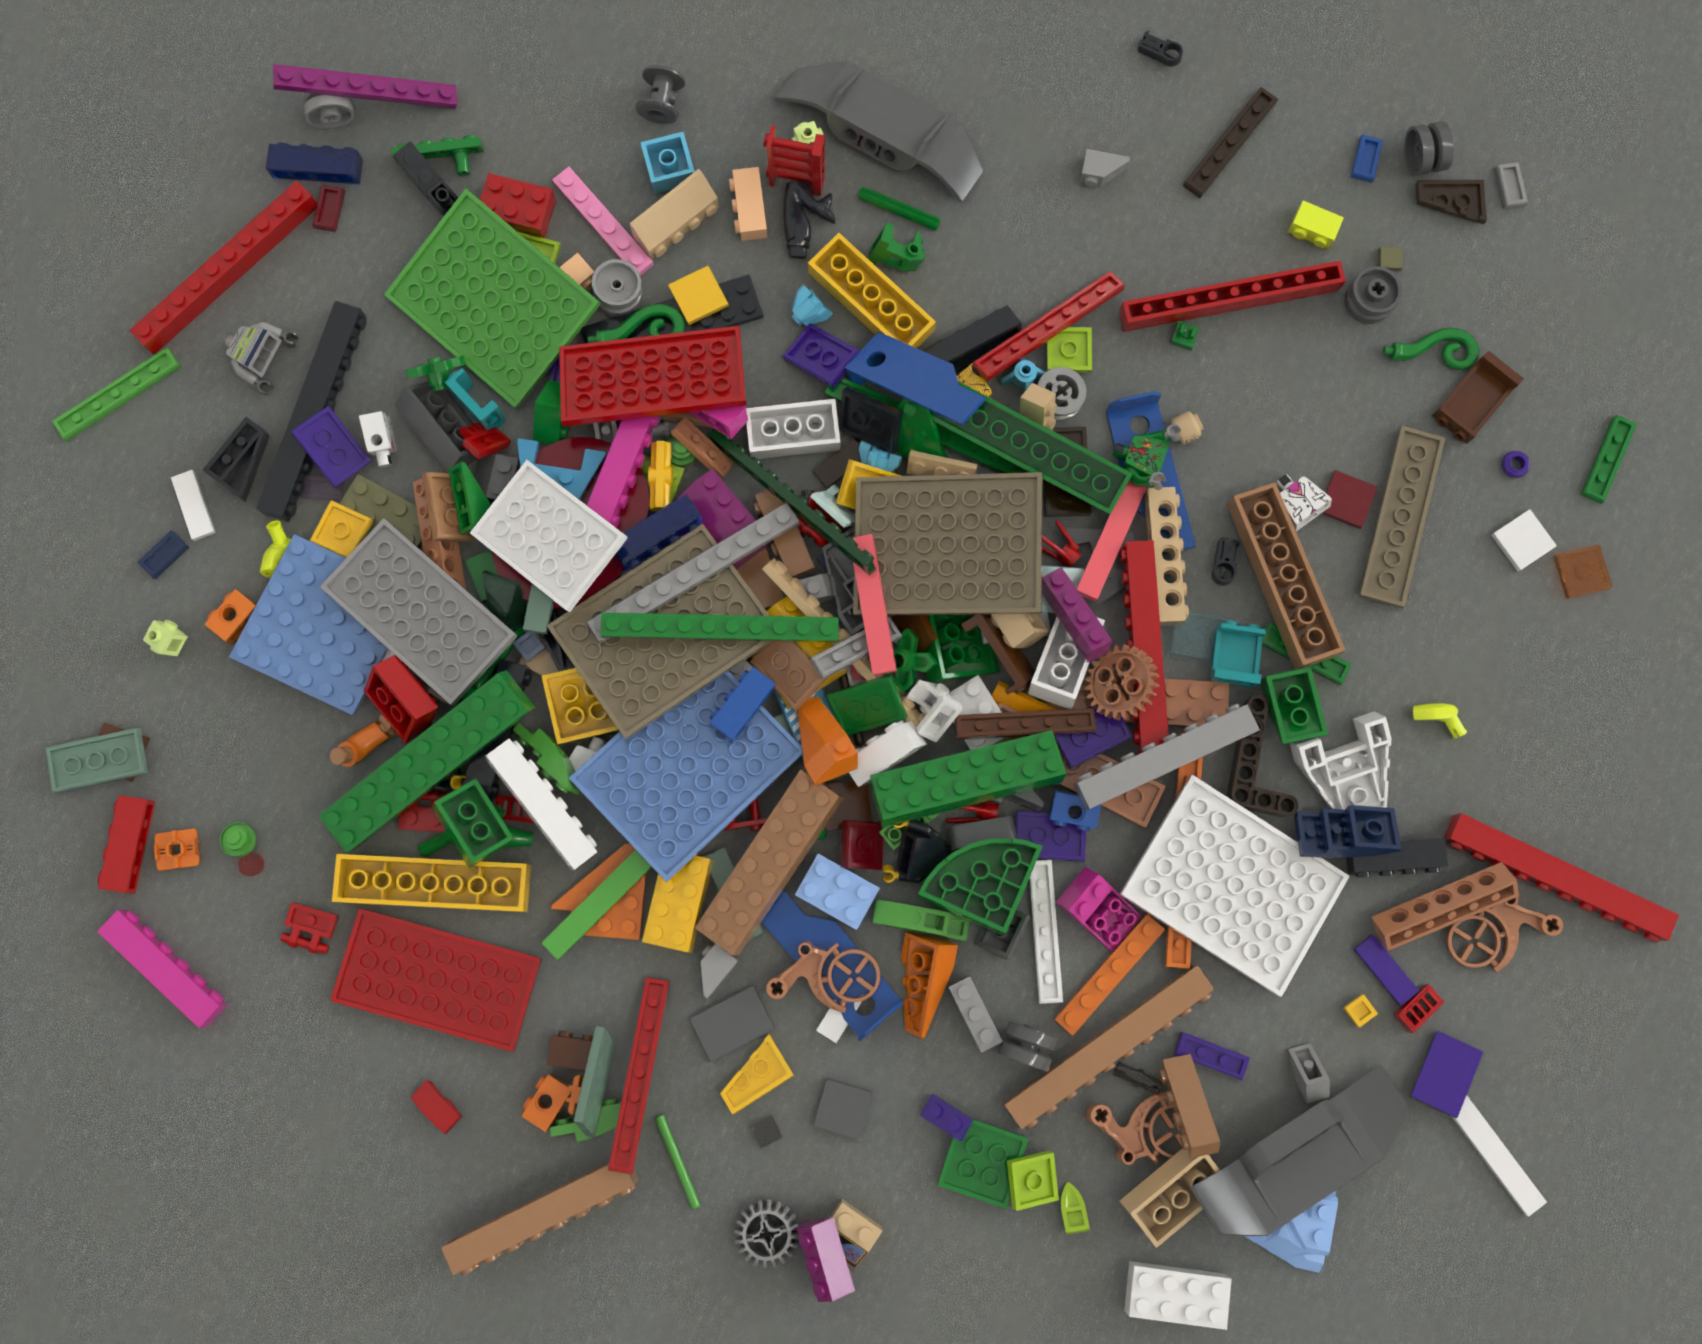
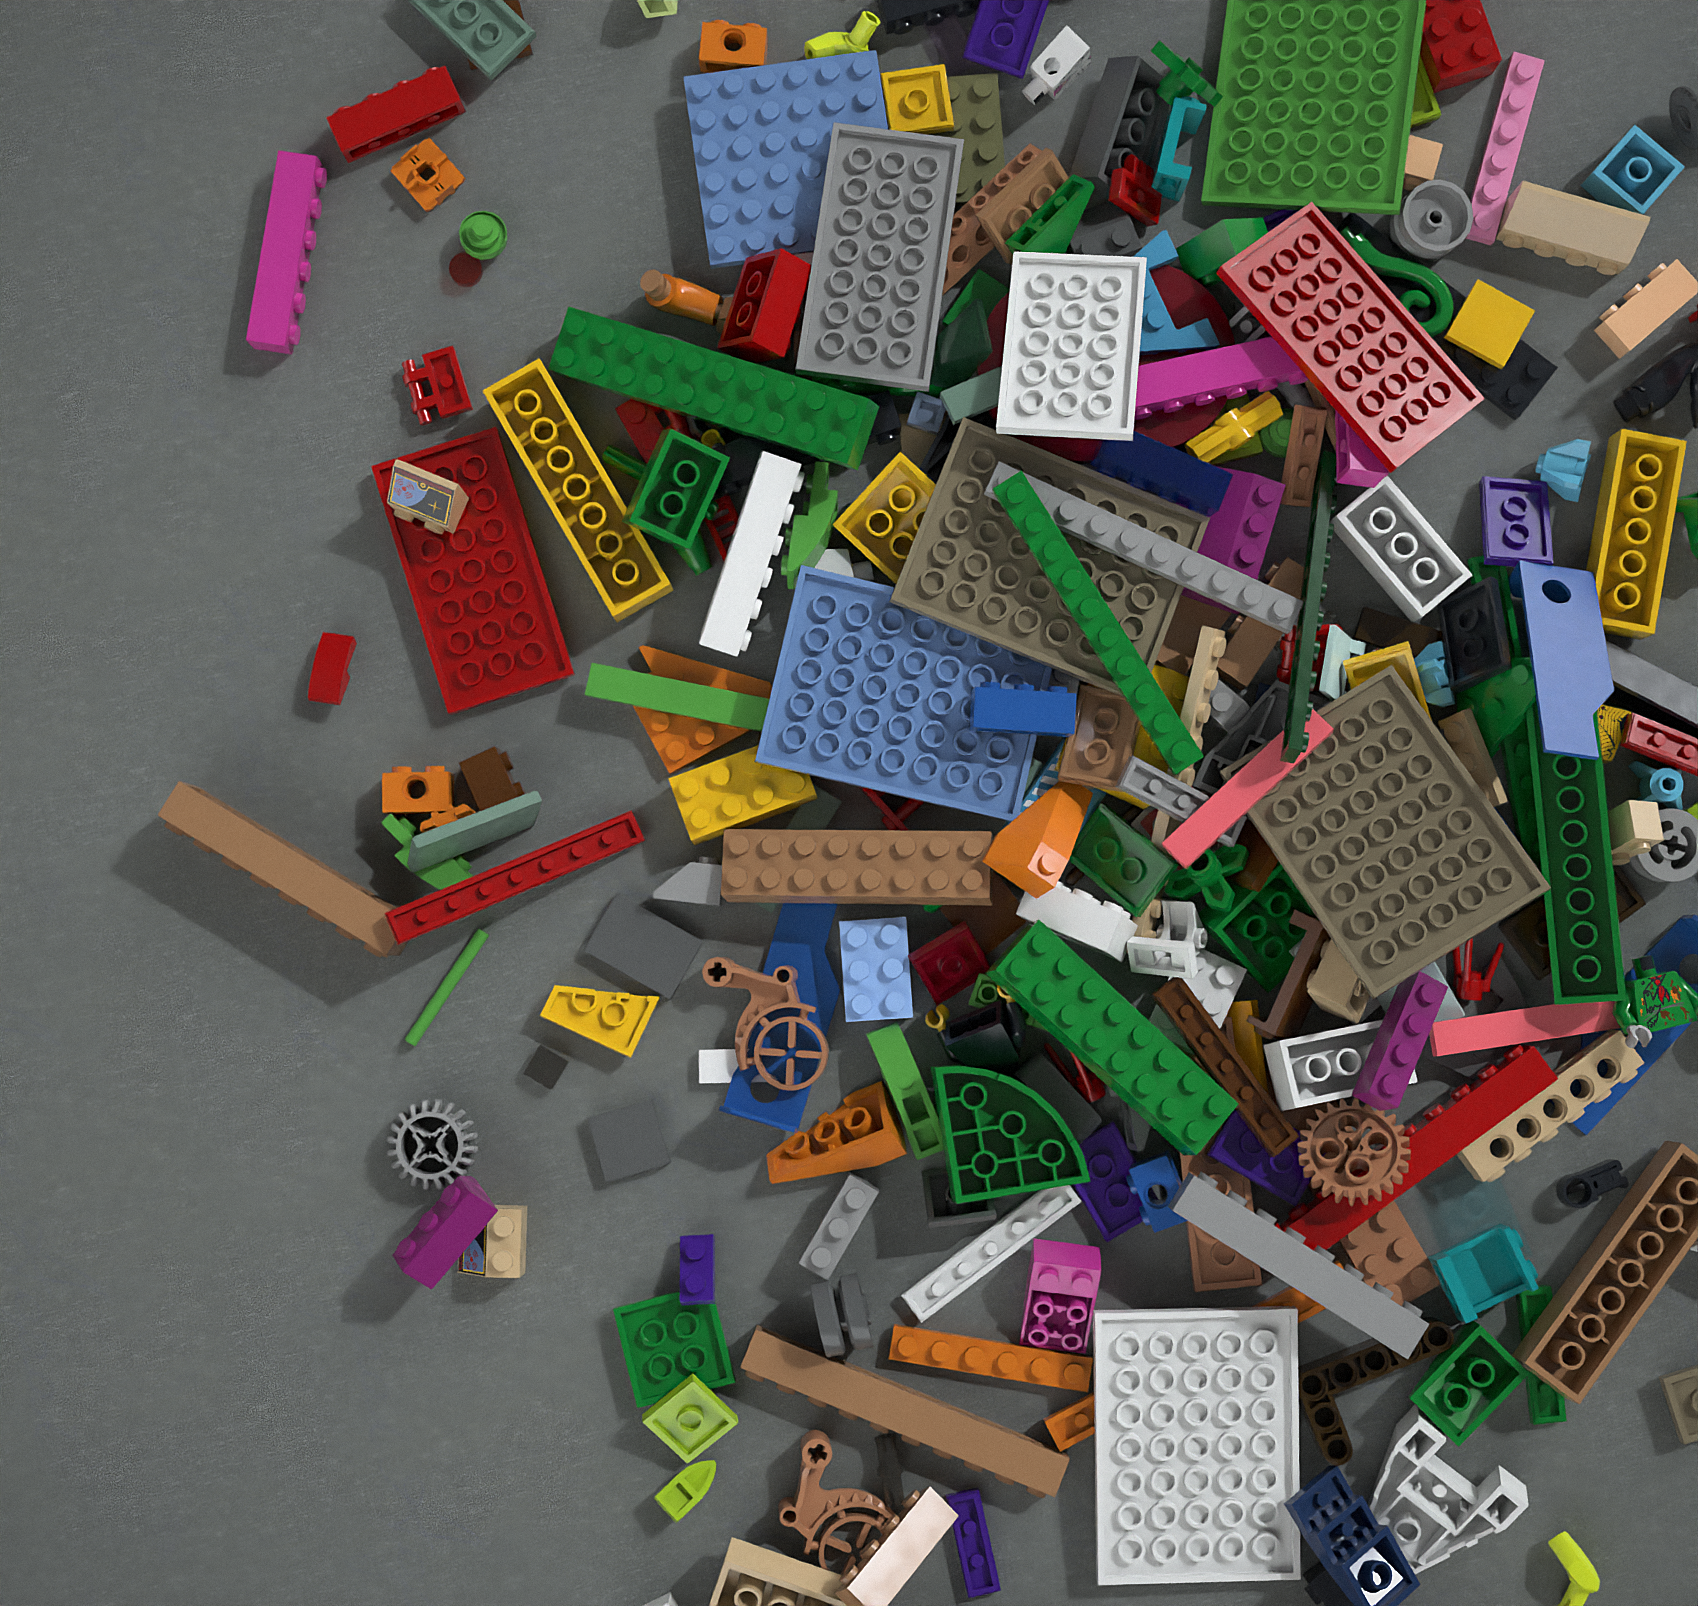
camera: 60 degrees right, 5 degrees up
(372, 979) = (425, 497): none -> slope

